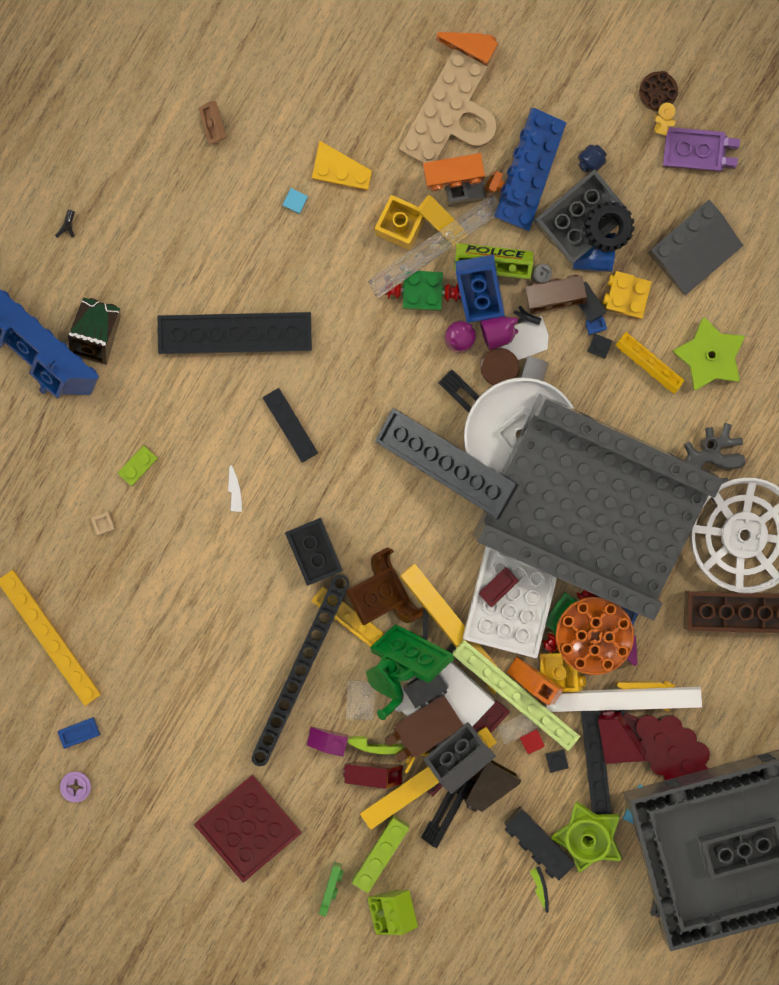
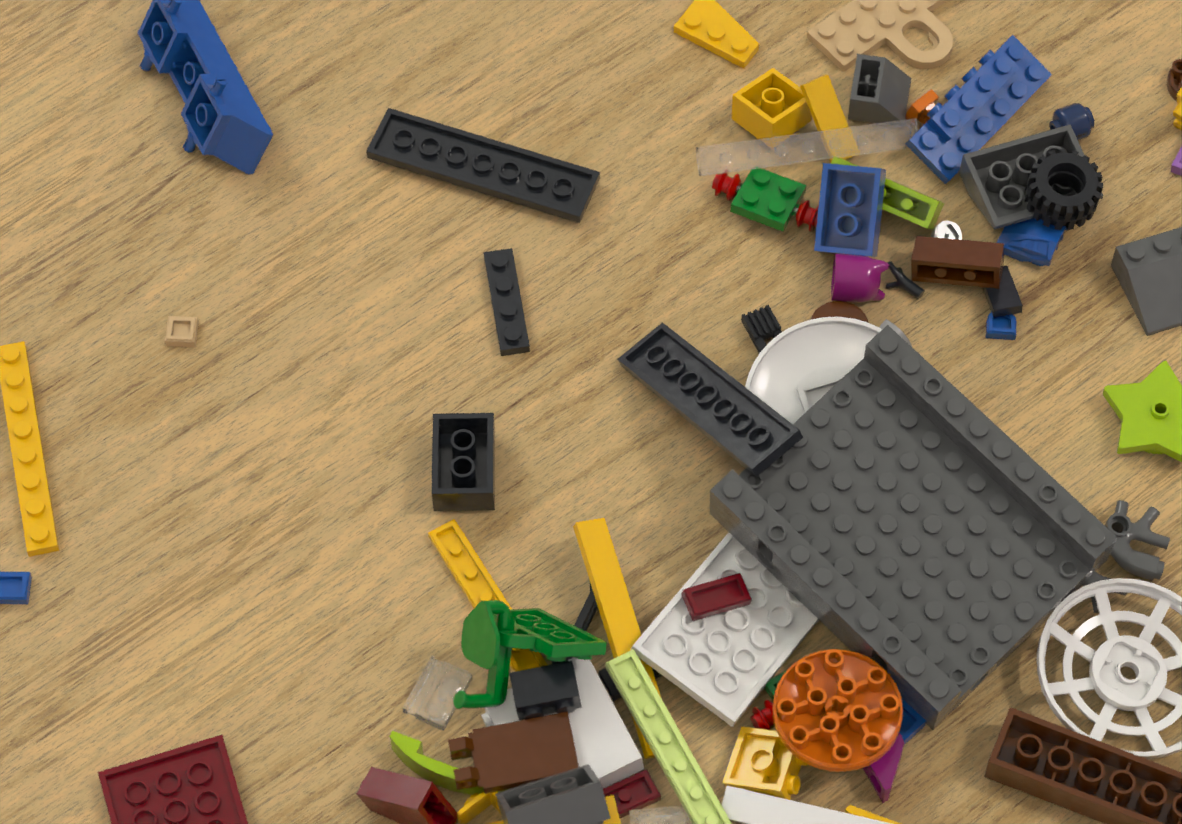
camera: 20 degrees right, 30 degrees down
(94, 330) = (295, 96): slope -> none
(137, 465) = (268, 278): lime plate -> none
(233, 487) = (388, 356): white sticker -> none
(295, 201) = (639, 46): medium azure tile -> none
(299, 679) = (363, 626): black beam -> none
(327, 741) = (361, 732): magenta slope -> none
(382, 593) = (537, 550): reddish brown piece -> none
(454, 171) = (870, 58): orange brick -> none
(460, 337) = (797, 270): magenta piece -> none
(529, 340) = (898, 308): white sticker -> none
(535, 681) = (722, 757): orange slope -> none
(599, 346) = (996, 353): black plate -> none
(627, 294) = (1060, 302): yellow plate -> none
(650, 363) = (1068, 402): yellow plate -> none

